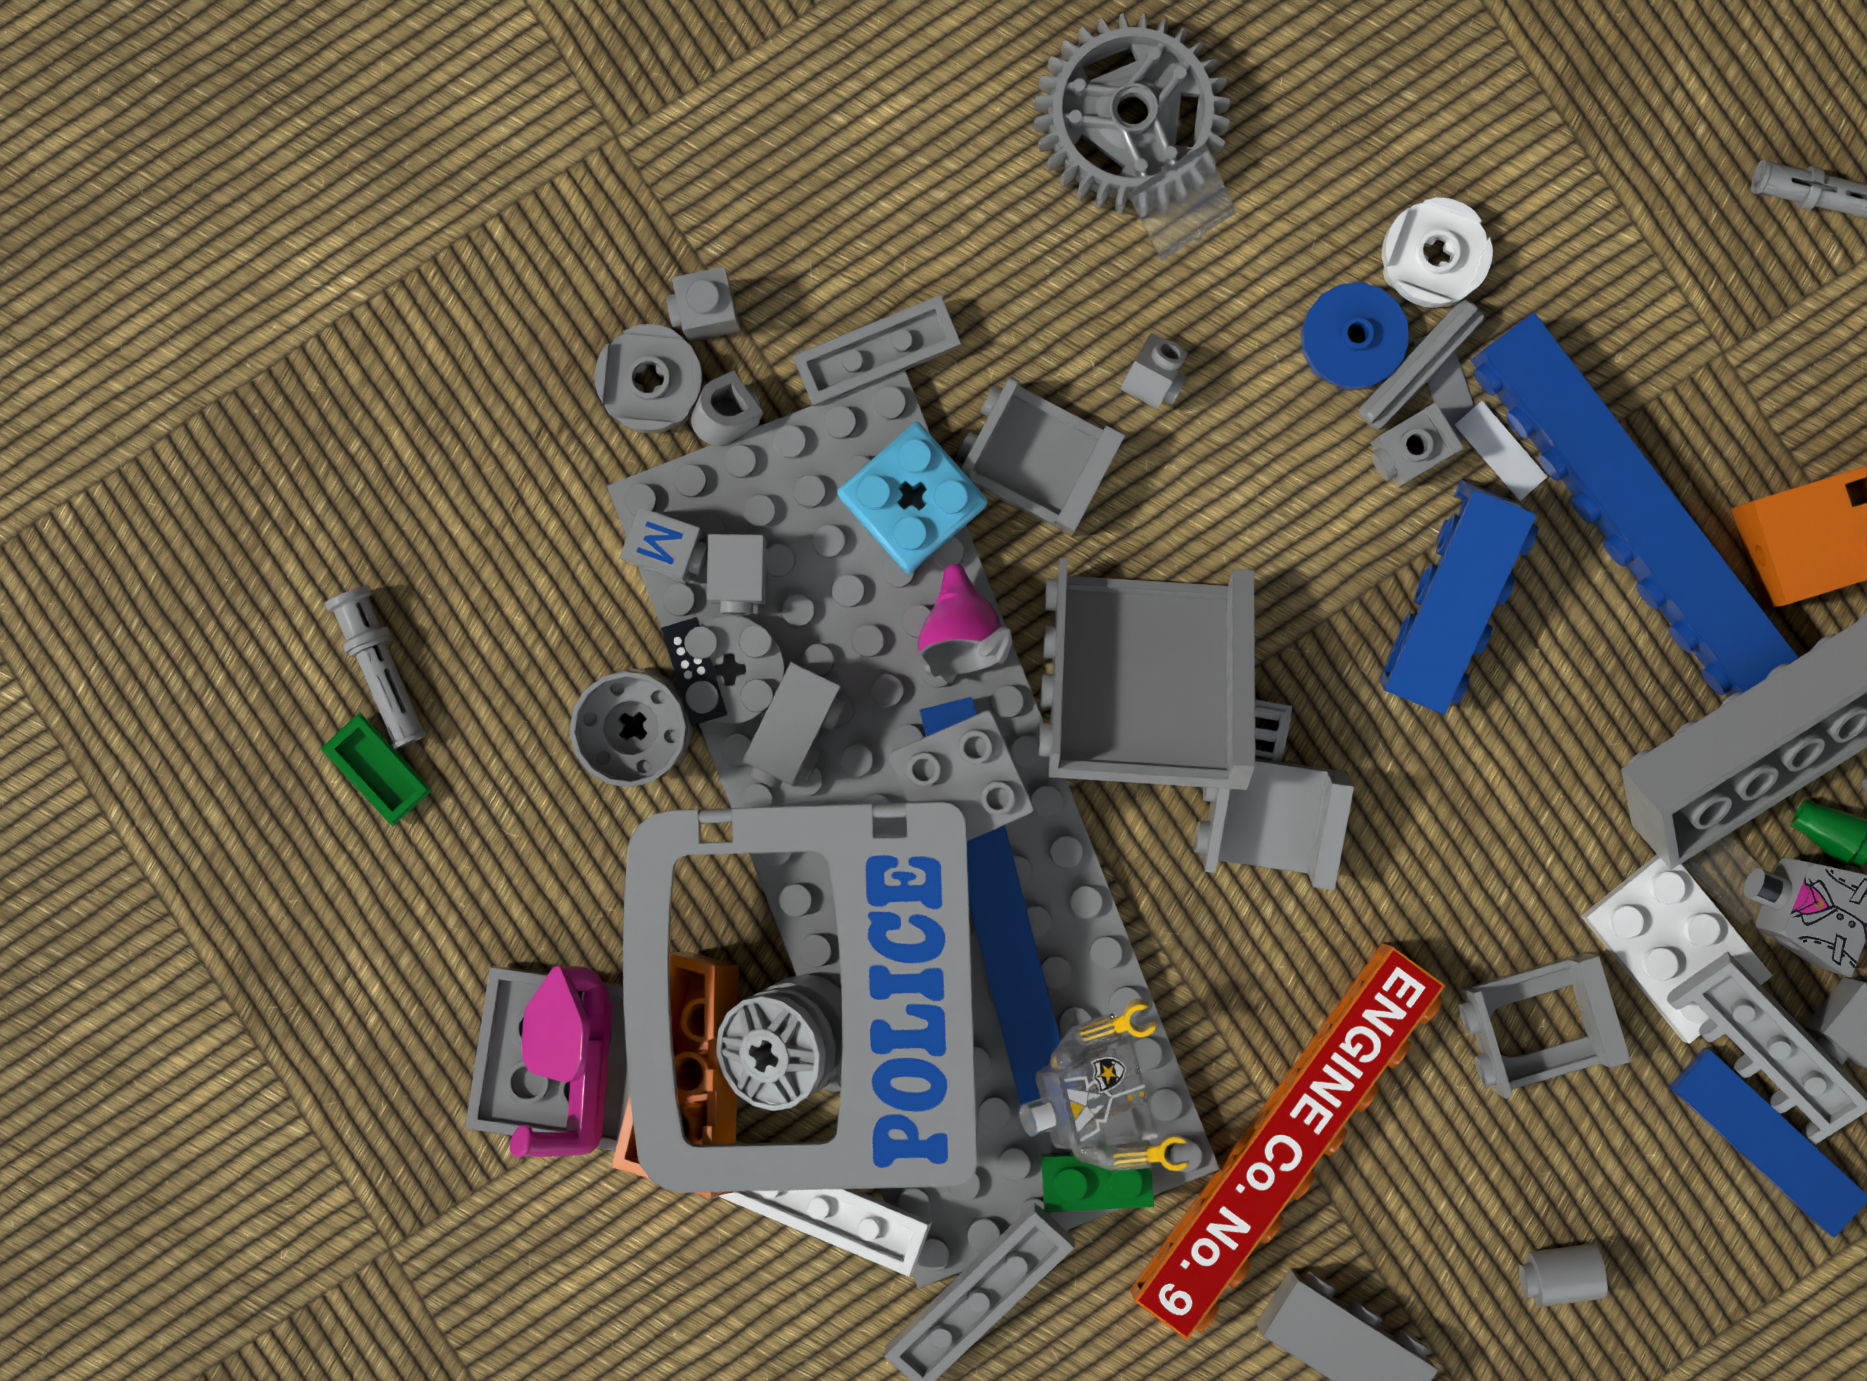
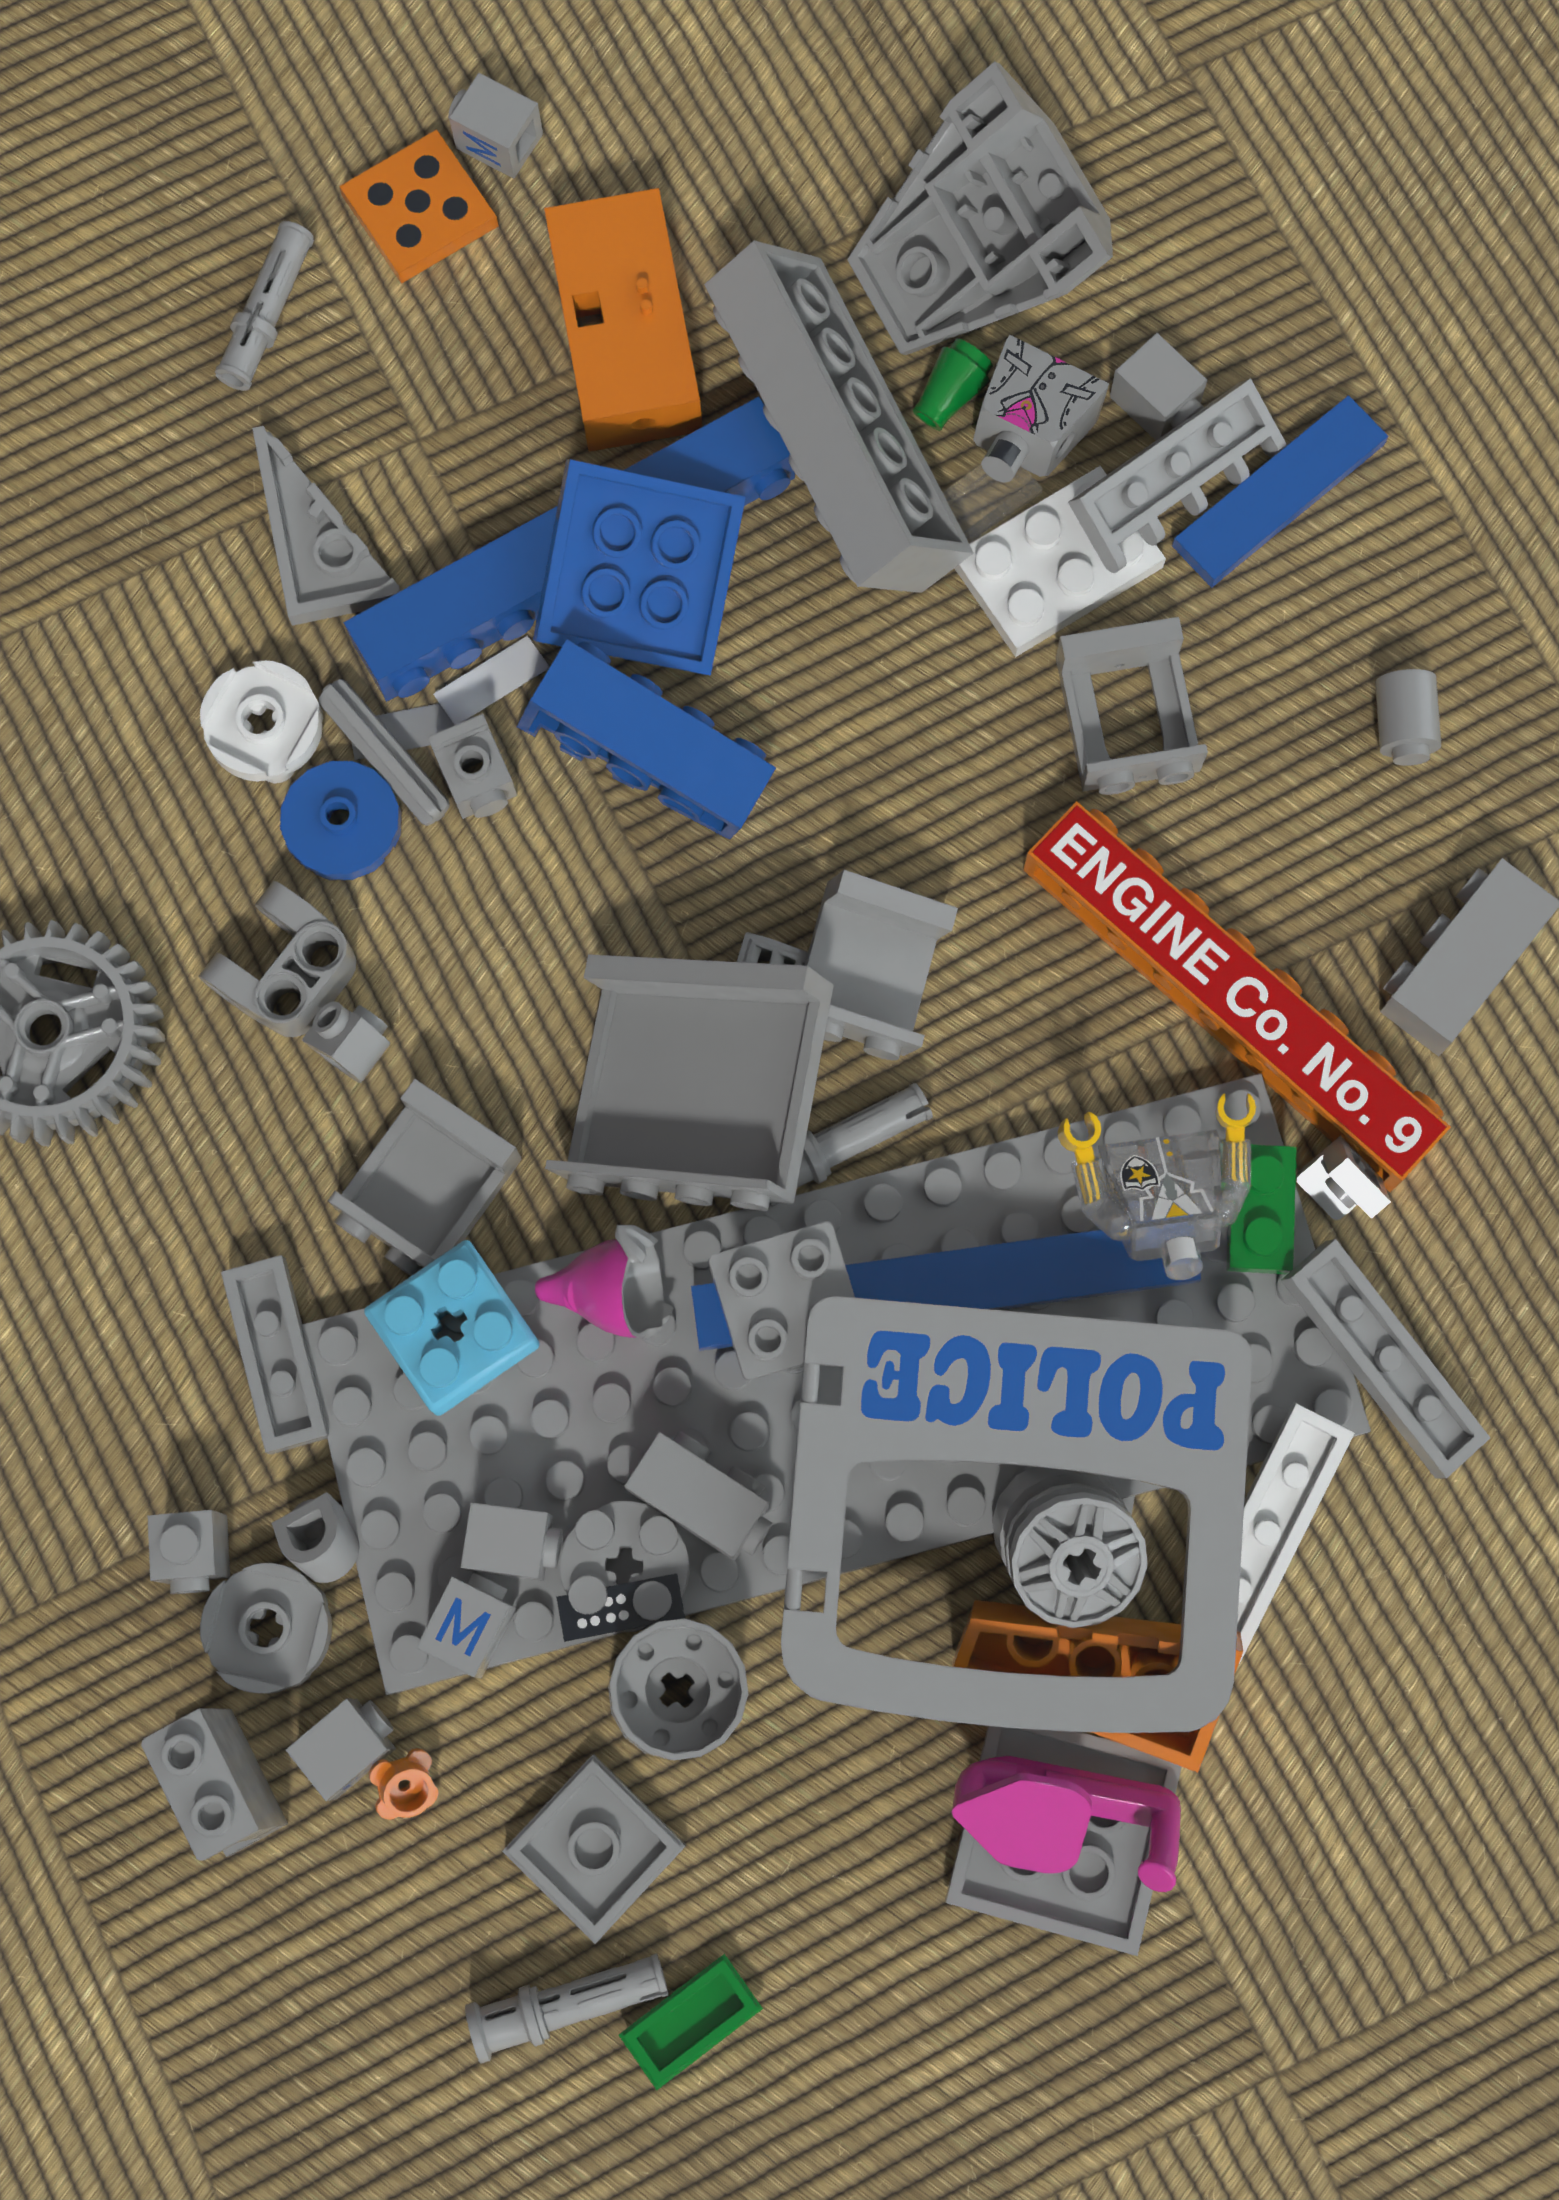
camera: 85 degrees left, 10 degrees down
(504, 673) = (594, 1848): none -> light grey tile
(512, 357) = (213, 1782): none -> light grey panel
(525, 517) = (412, 1799): none -> orange plate
(559, 457) = (343, 1747): none -> light grey brick
(1127, 828) = (861, 1133): none -> light grey pin
(1131, 1249) = (1341, 1180): none -> bracket
(1182, 202) = (159, 986): clear piece -> none
(1212, 314) = (292, 968): none -> light grey piece
(1597, 280) = (319, 559): none -> light grey wing
(1618, 569) = (639, 567): none -> blue plate

